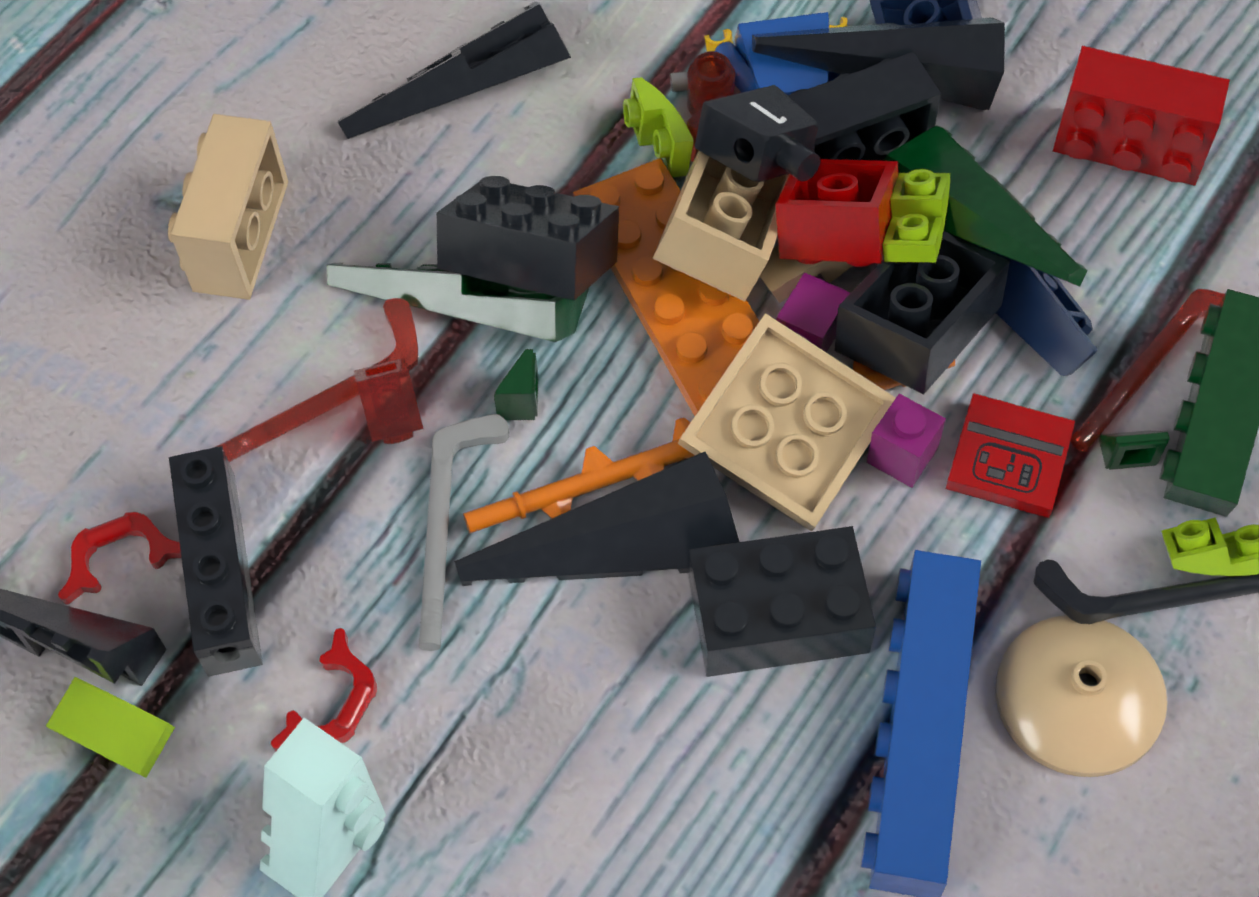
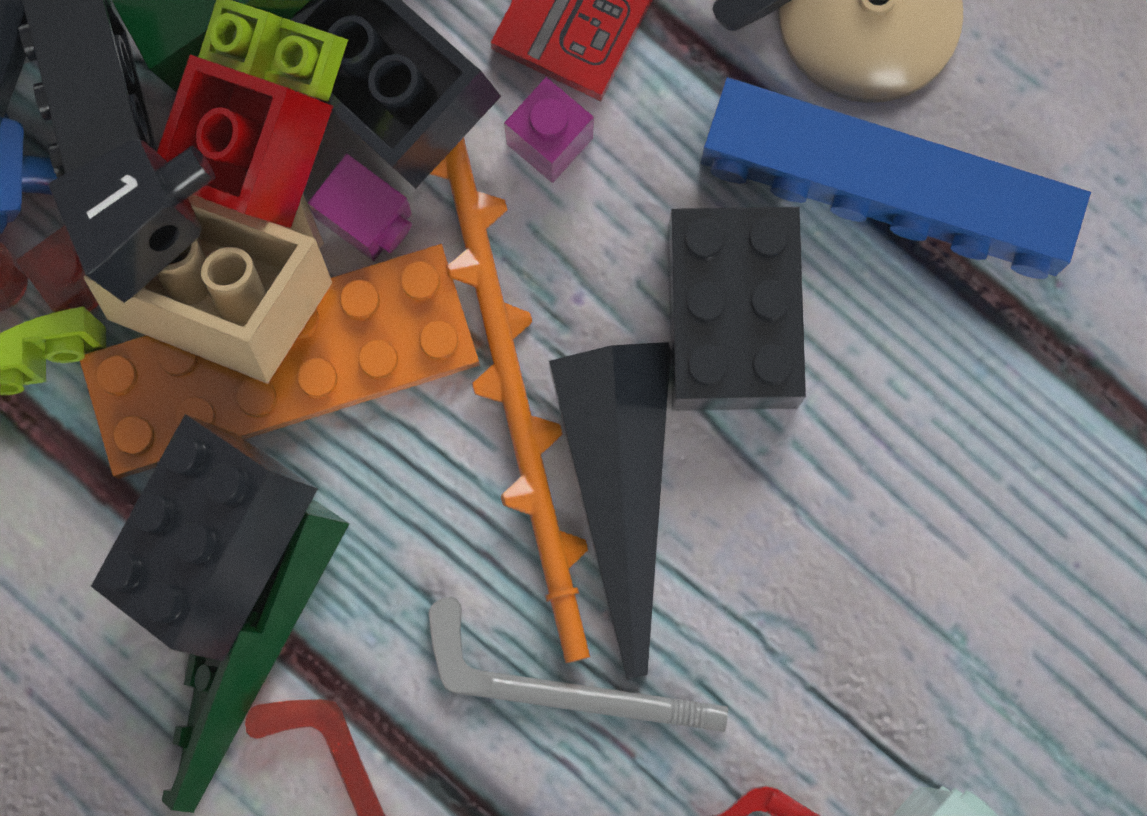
camera: 85 degrees left, 20 degrees up
(389, 401) = (403, 740): clear red brick -> none
(518, 392) = (406, 571): dark green slope -> none
(787, 422) = (509, 260): tan plate -> none

